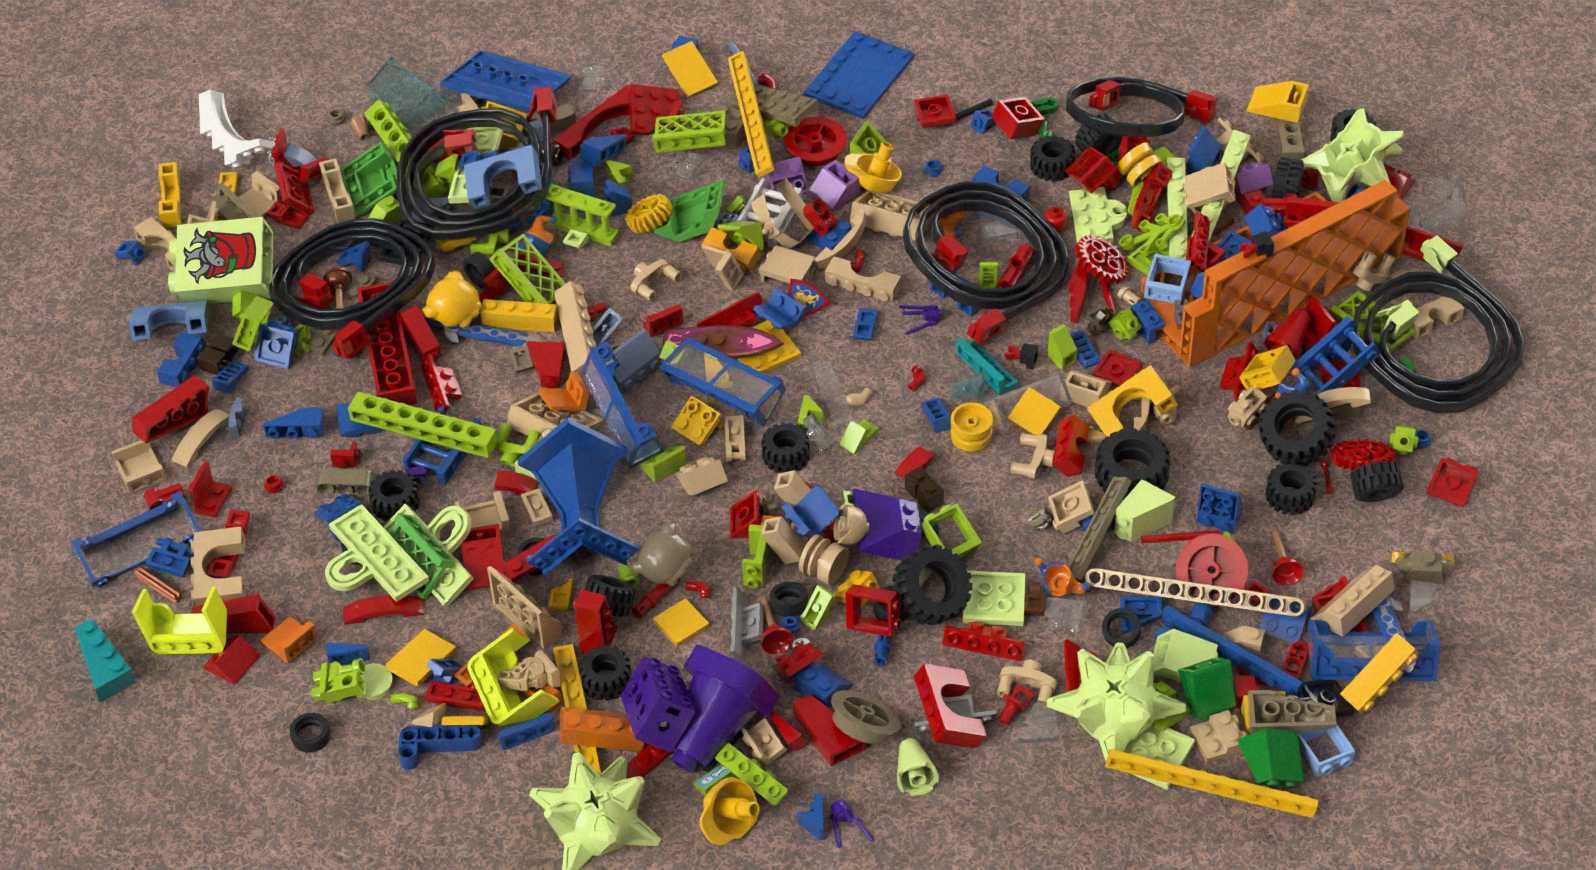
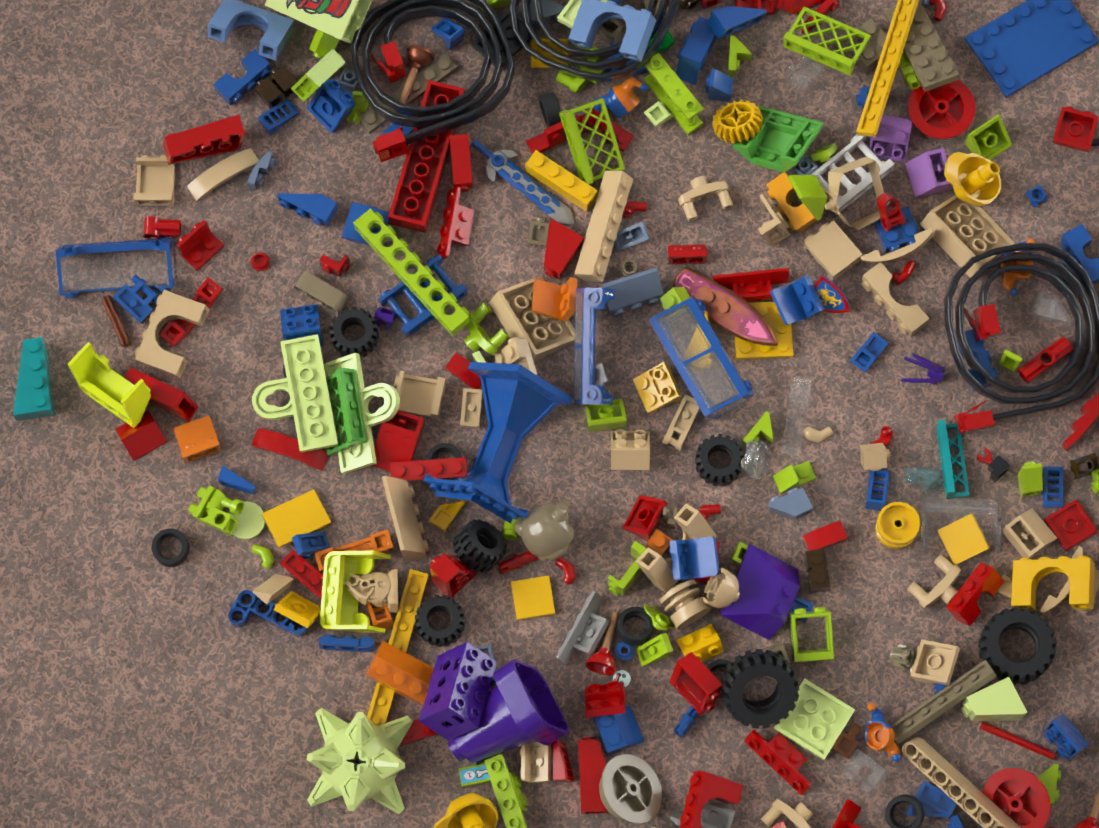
camera: 30 degrees right, 25 degrees up
(452, 301) = (504, 142): yellow piece -> none
(808, 580) = (660, 620): none -> lime plate
(870, 454) = (793, 505): none -> sand blue slope
(918, 389) = (874, 456): none -> tan brick

